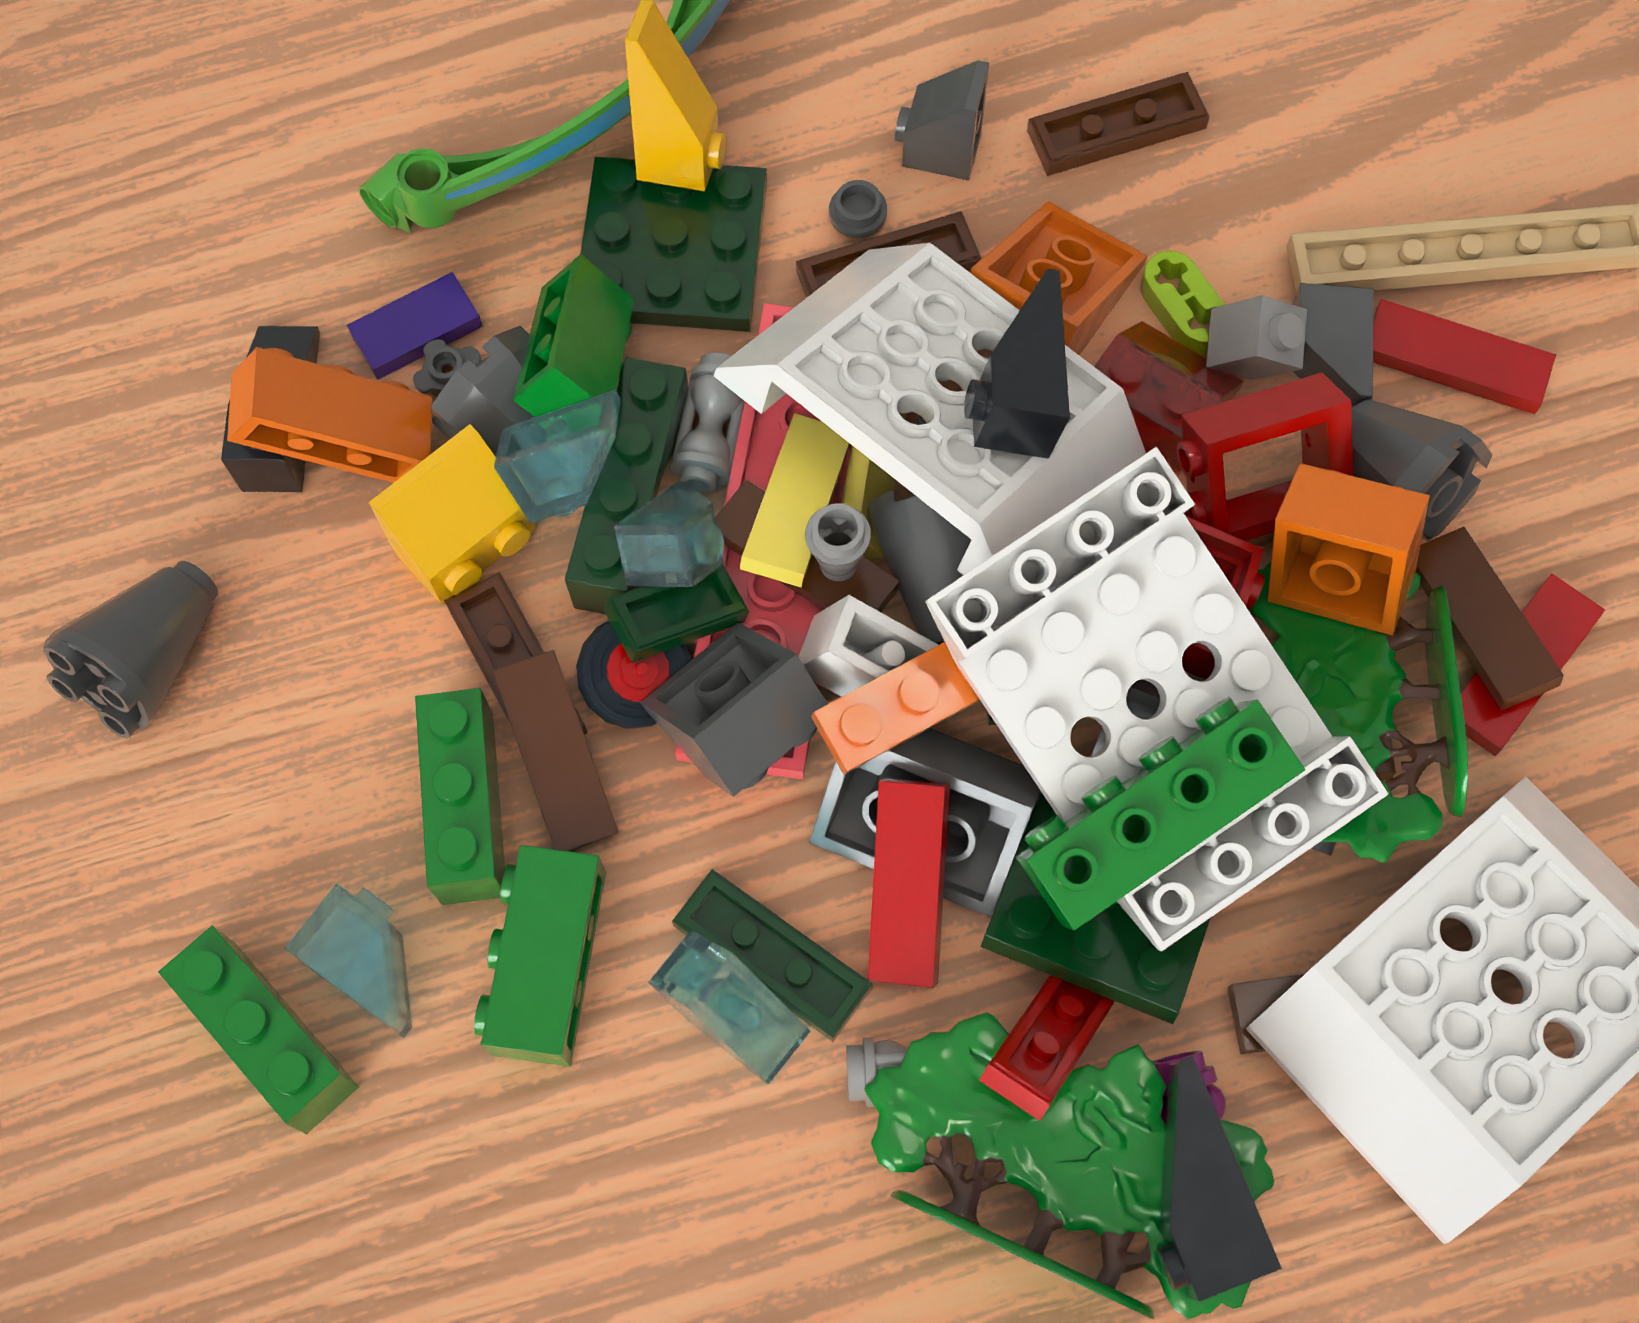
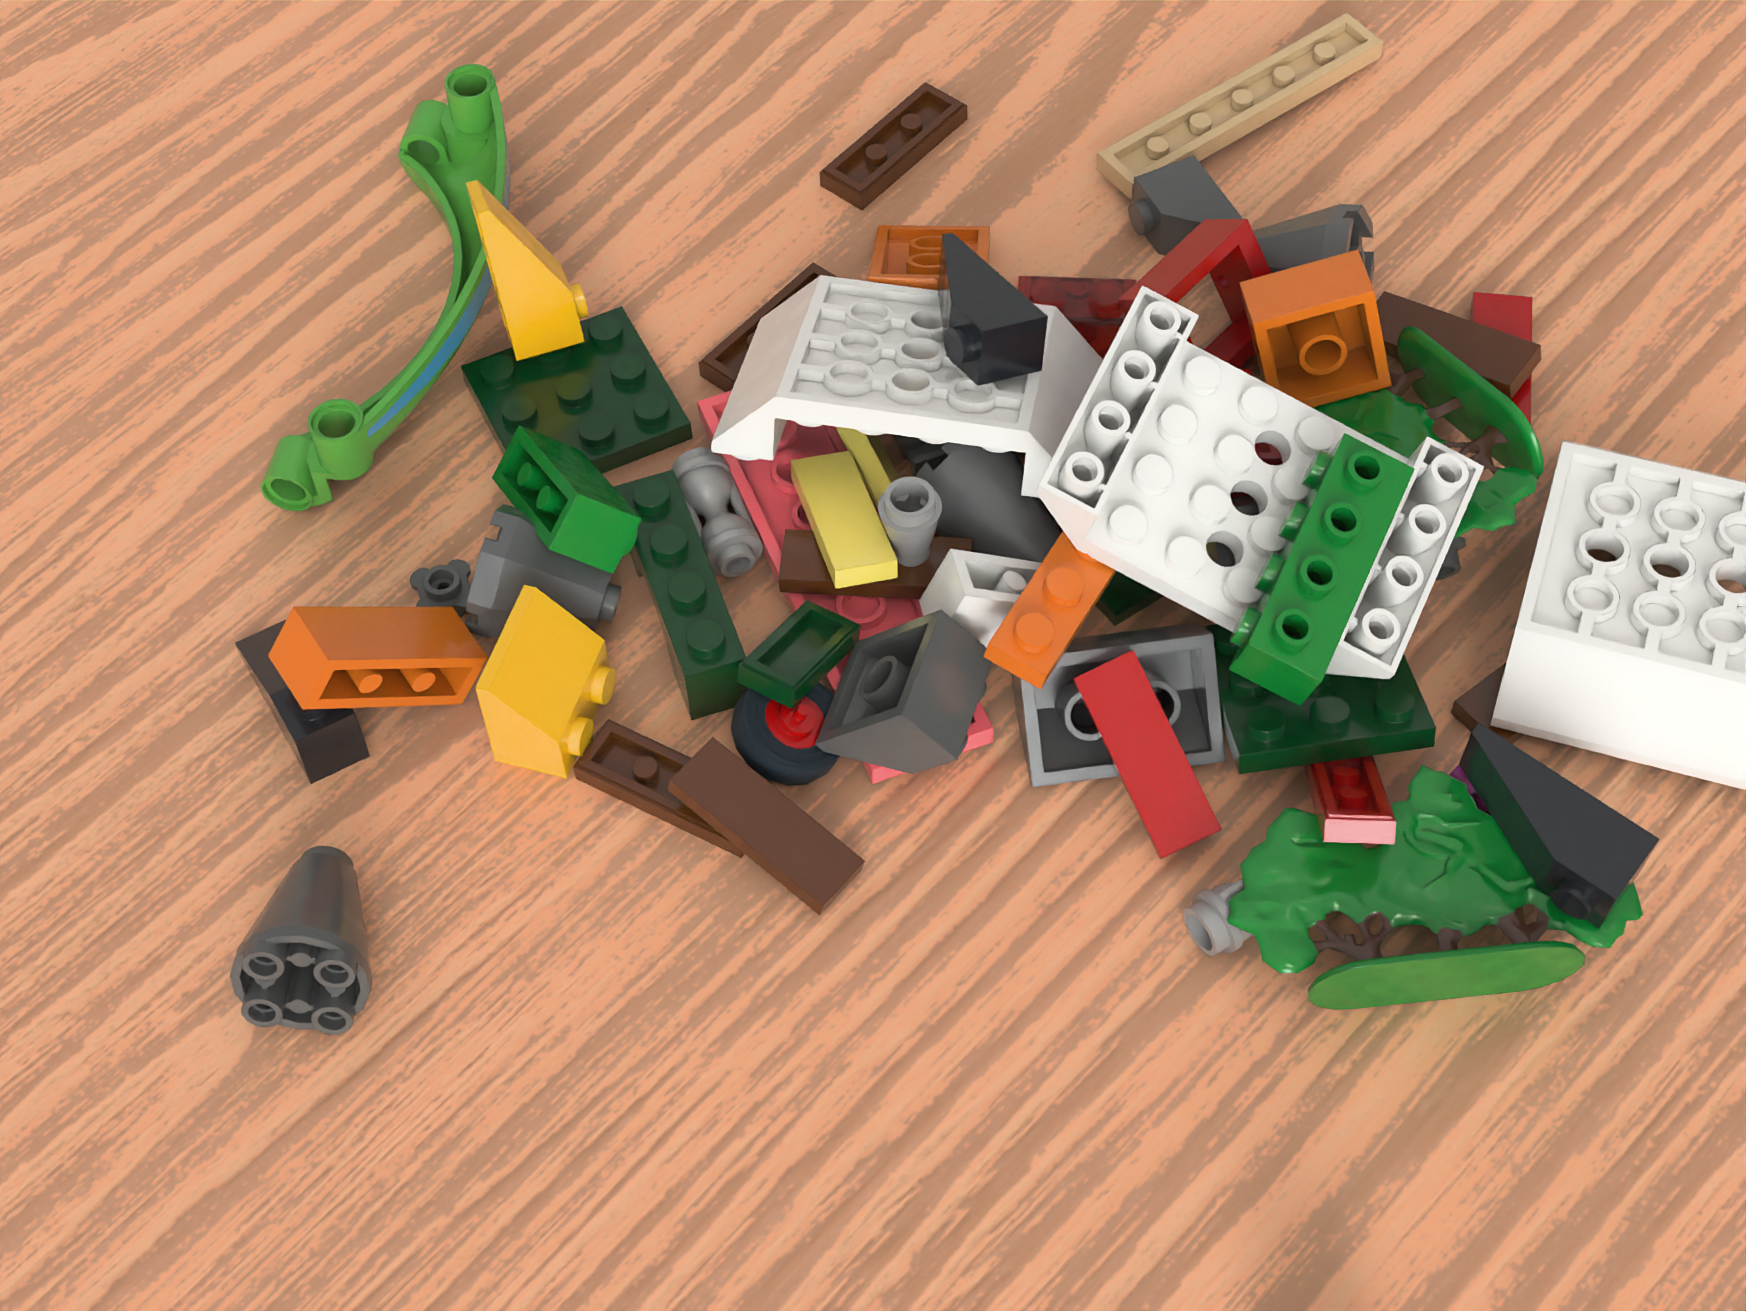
camera: 30 degrees left, 15 degrees down
(258, 1030) = (655, 1184): green brick -> none
(358, 954) = (705, 1081): clear light blue slope -> none
(402, 328) = (386, 563): dark purple tile -> none
(460, 796) = (707, 903): green brick -> none
(541, 956) = (871, 989): green brick -> none
(558, 456) = (621, 574): clear light blue slope -> none
(670, 540) = (762, 595): clear light blue slope -> none
(729, 1005) = (1060, 934): clear light blue slope -> none
(785, 960) = (1065, 887): dark green tile -> none
(858, 209) = (723, 300): dark grey plate -> none
(945, 122) = (757, 197): dark grey slope -> none
(1177, 307) = (1045, 243): lime beam -> none
(1256, 338) = (1128, 232): light grey brick -> none
(1460, 356) = (1296, 180): red tile -> none

